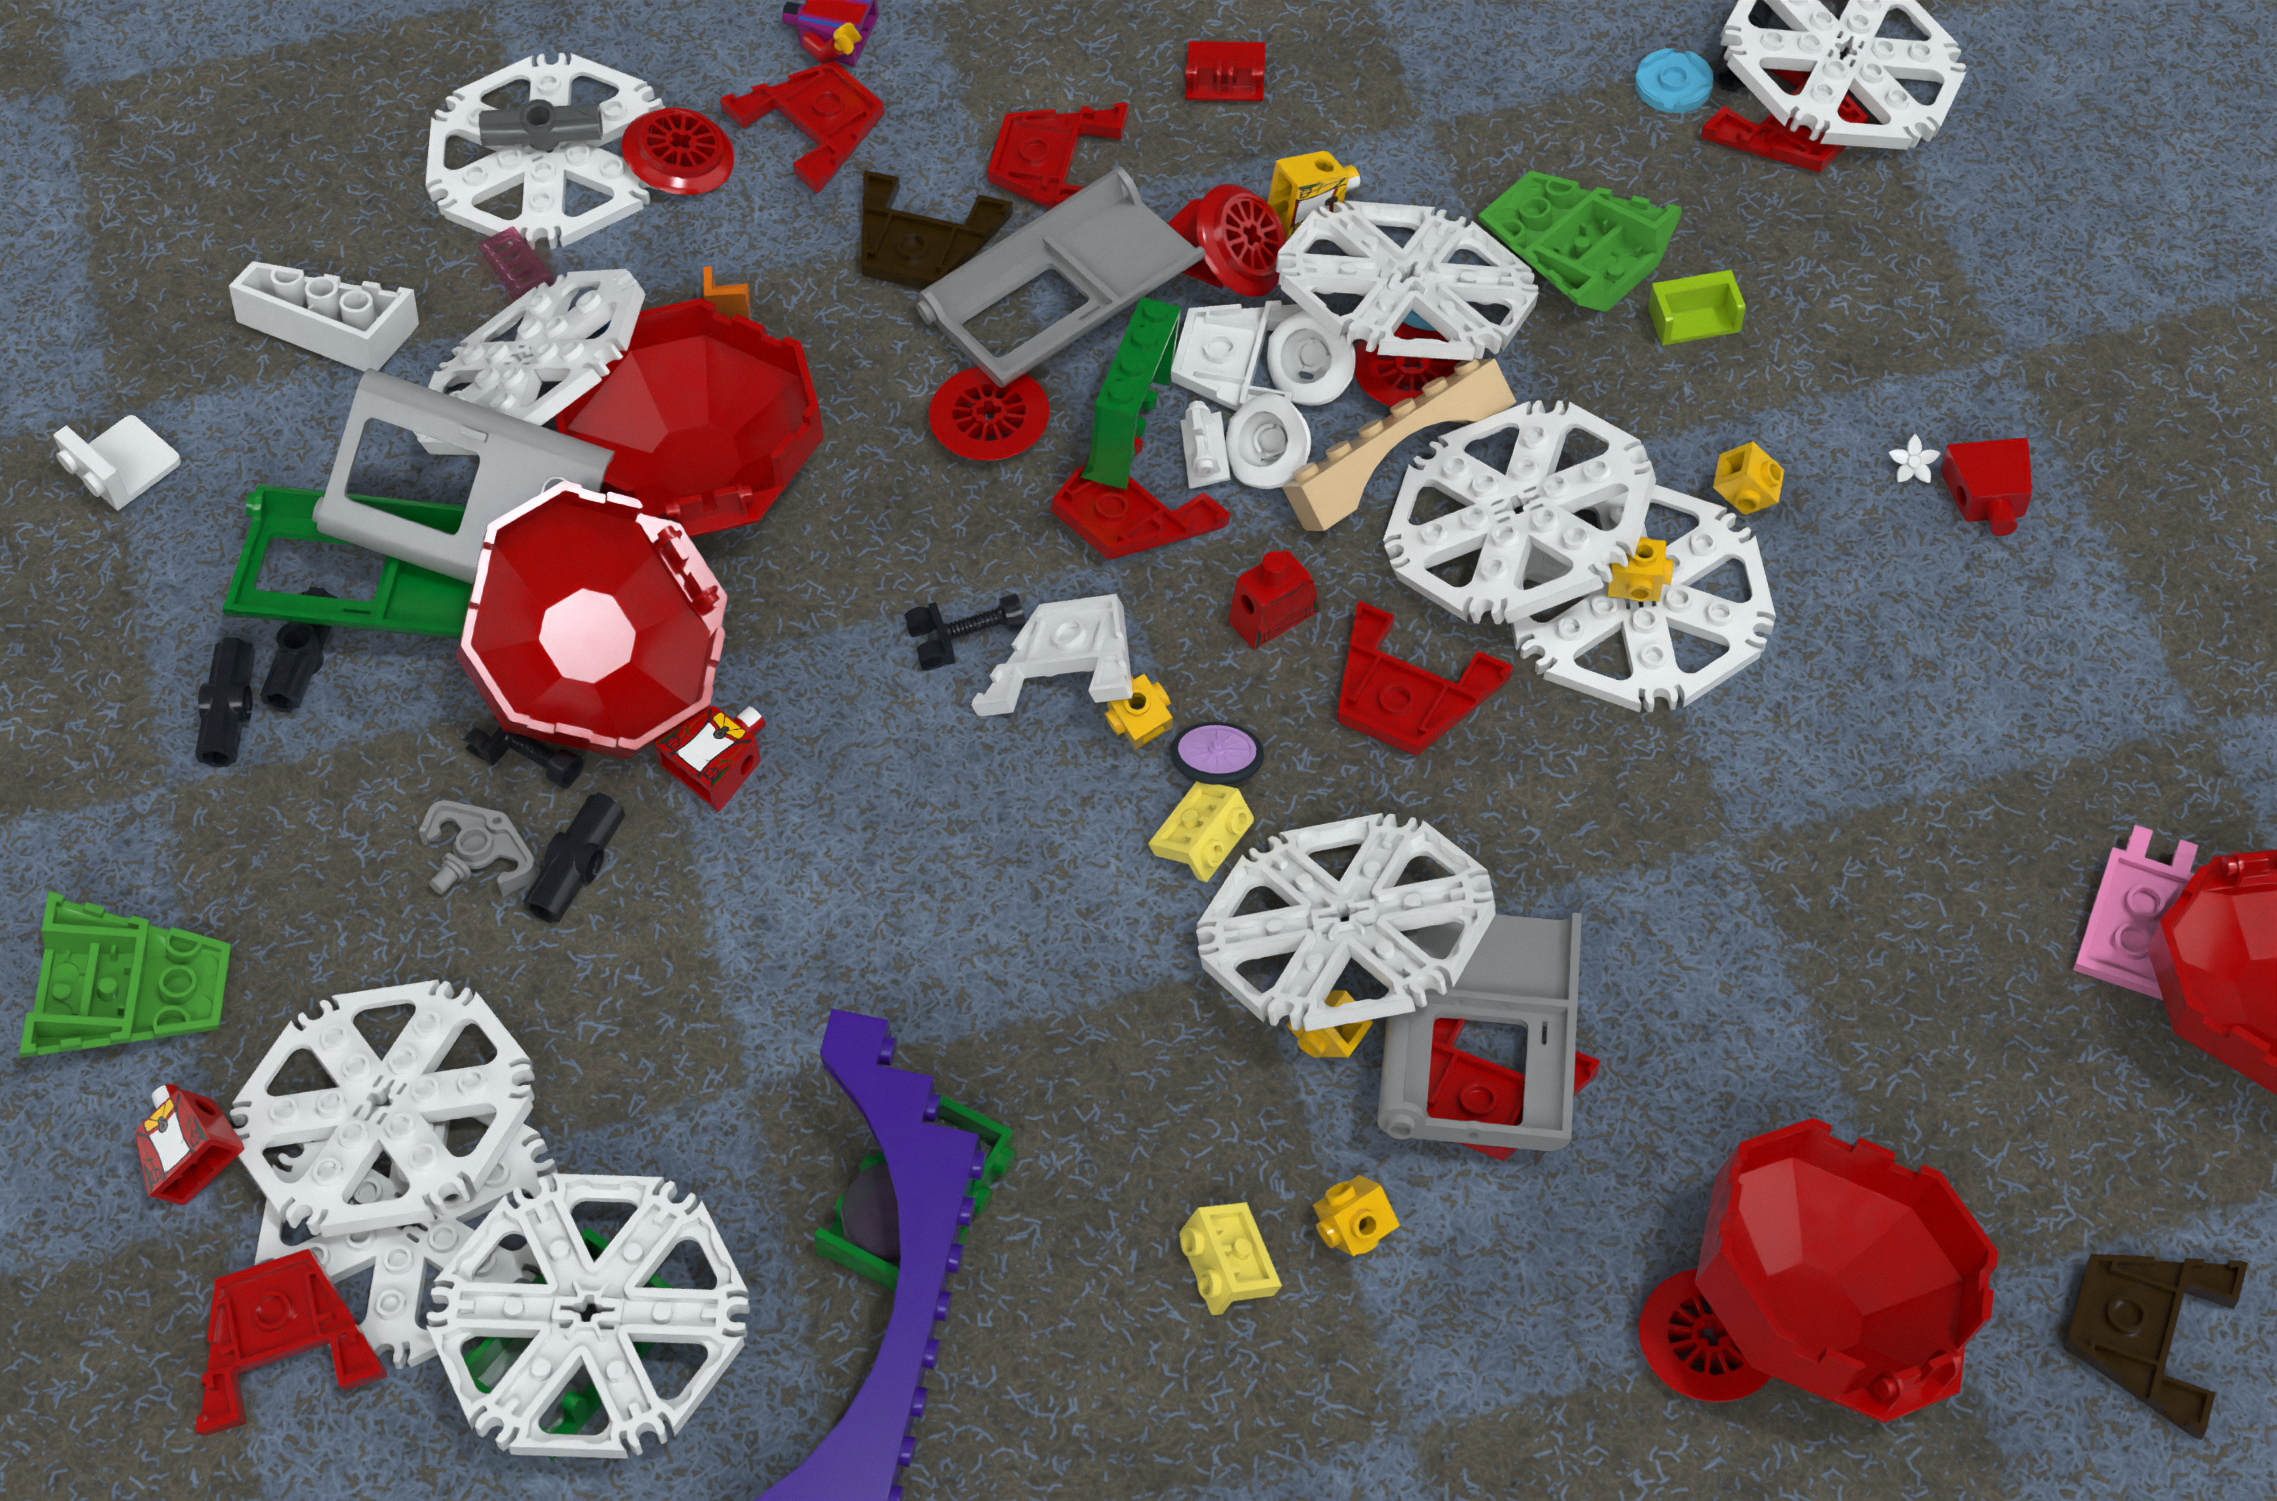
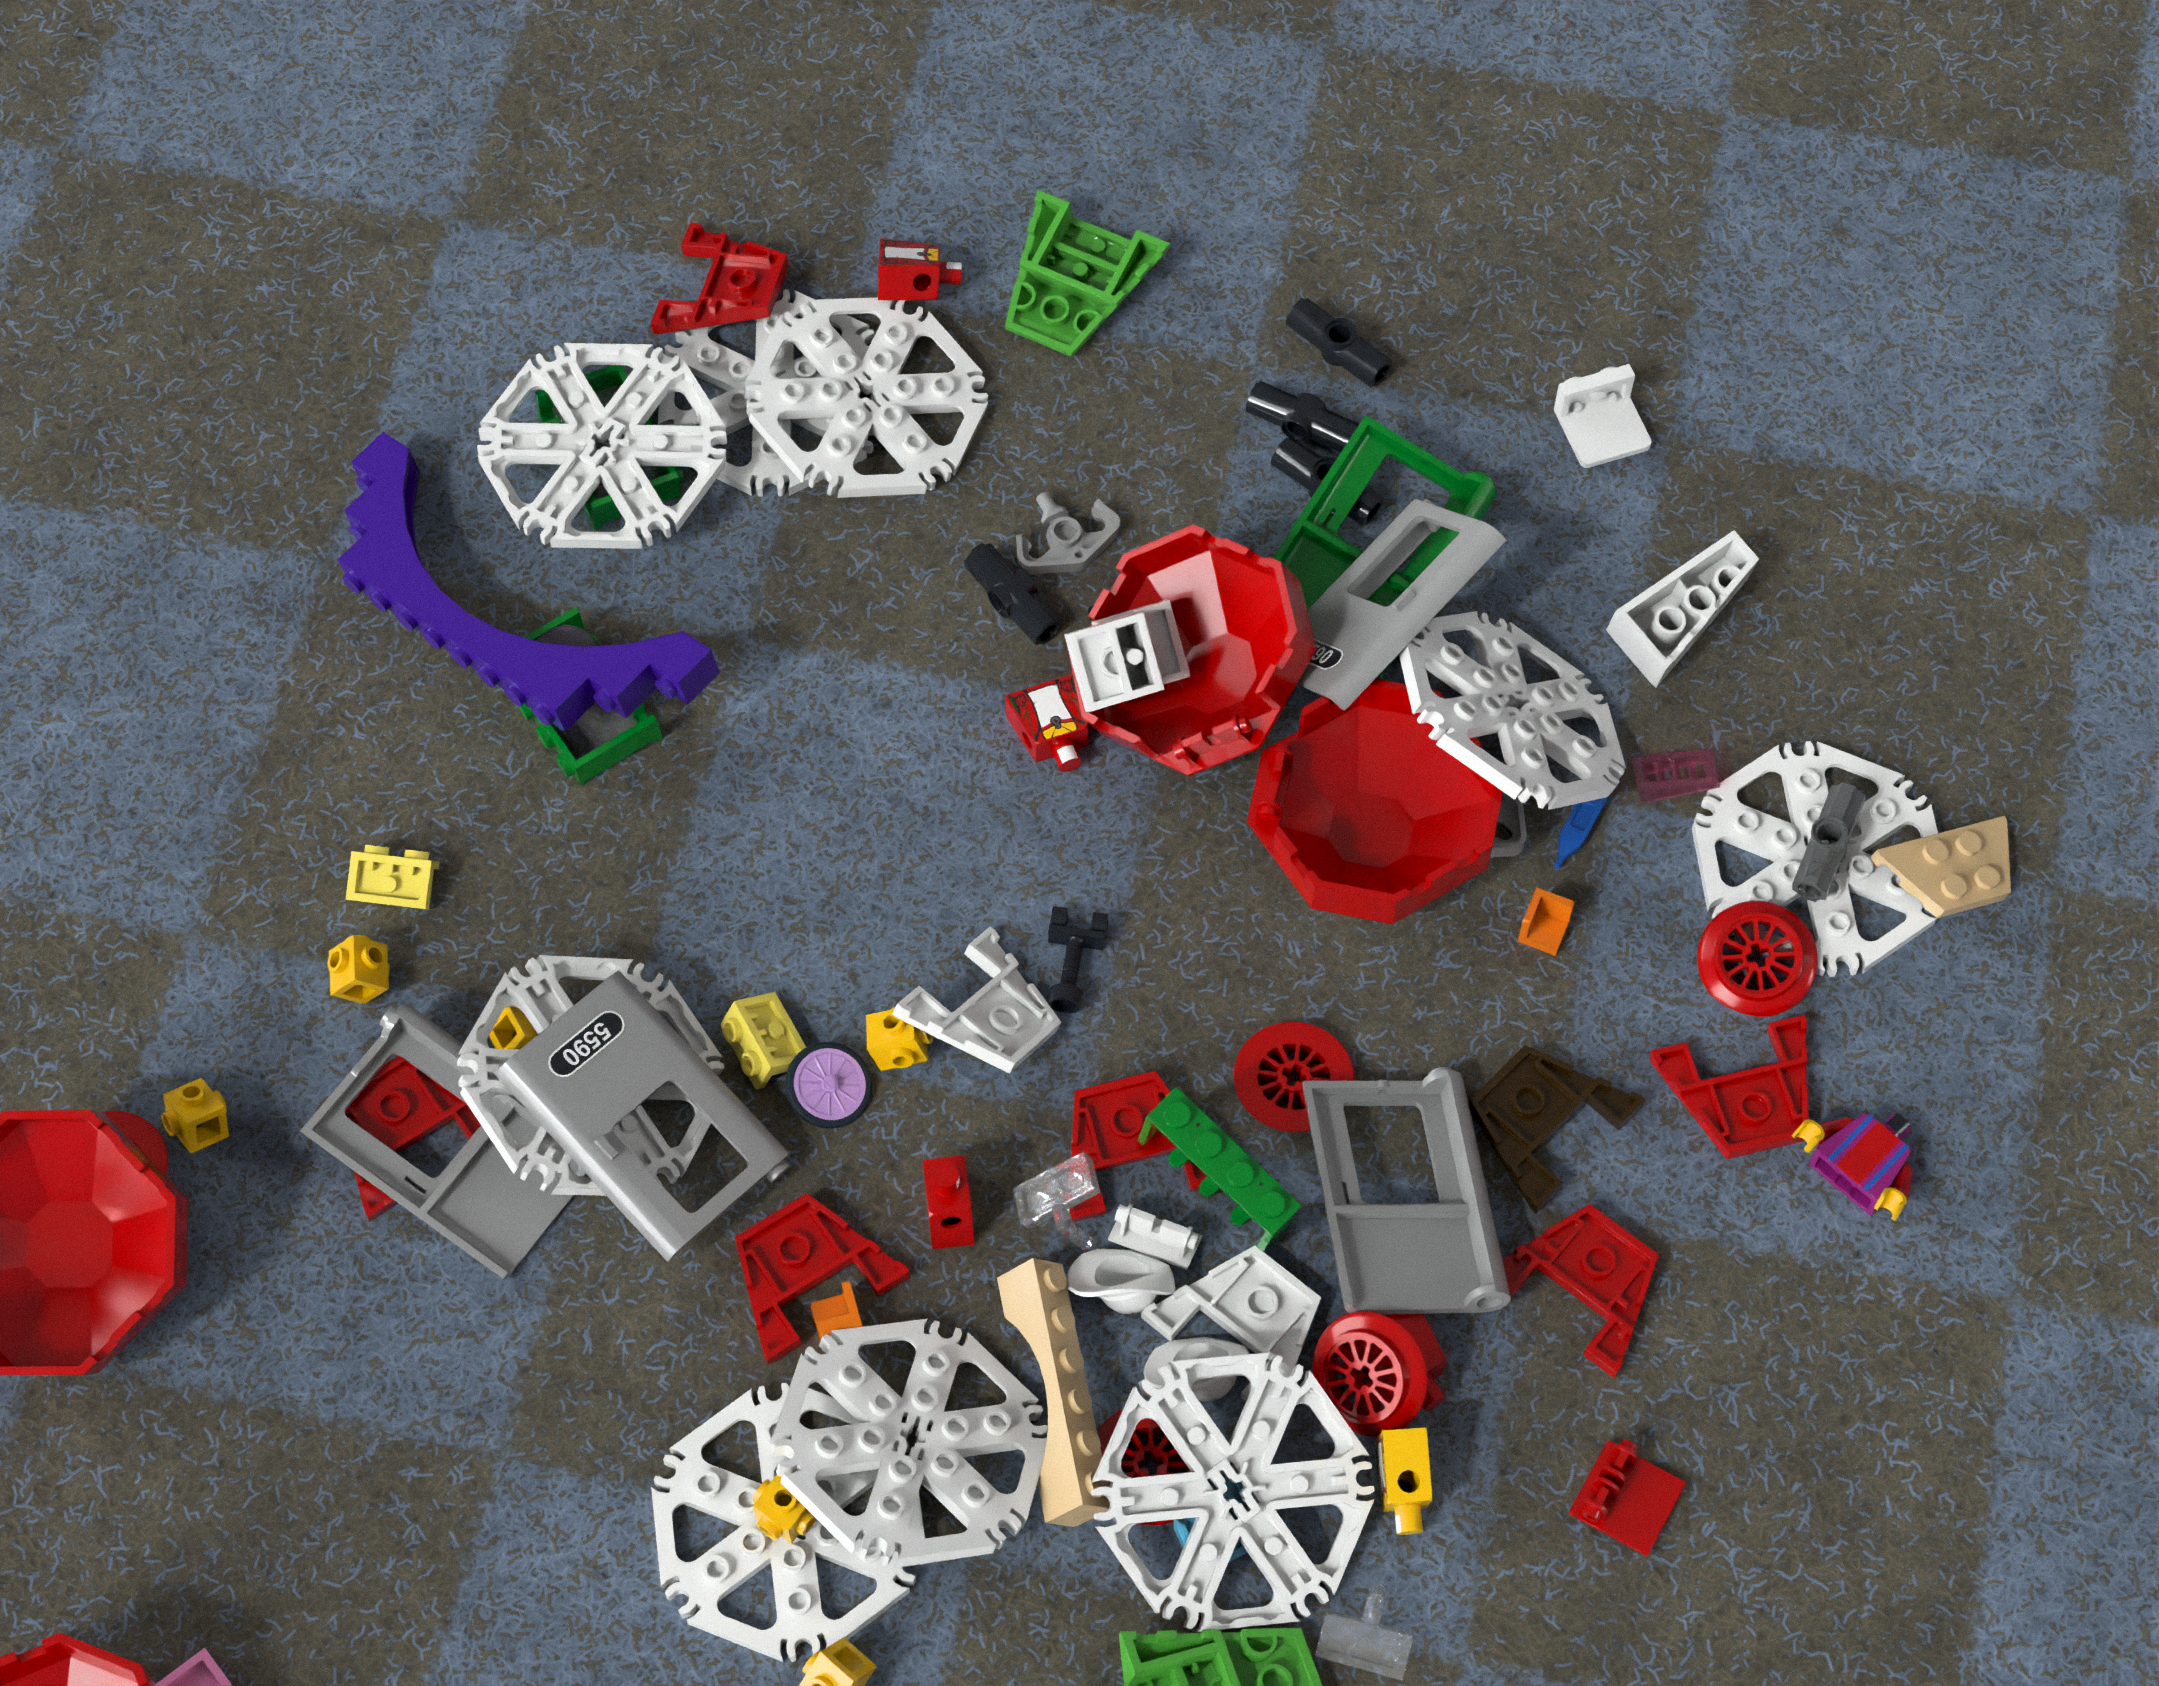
camera: 115 degrees right, 5 degrees up
(110, 710) = (1352, 351): none -> black piece
(512, 52) = (1954, 867): none -> tan wing
(625, 678) = (1127, 655): none -> white bracket
(1216, 522) = (1055, 1193): none -> clear plate
(1354, 887) = (598, 1069): none -> light grey piece
(1436, 636) = (836, 1312): none -> orange panel
(1461, 169) = (1364, 1641): none -> clear plate
(1607, 1273) = (194, 1107): none -> yellow brick

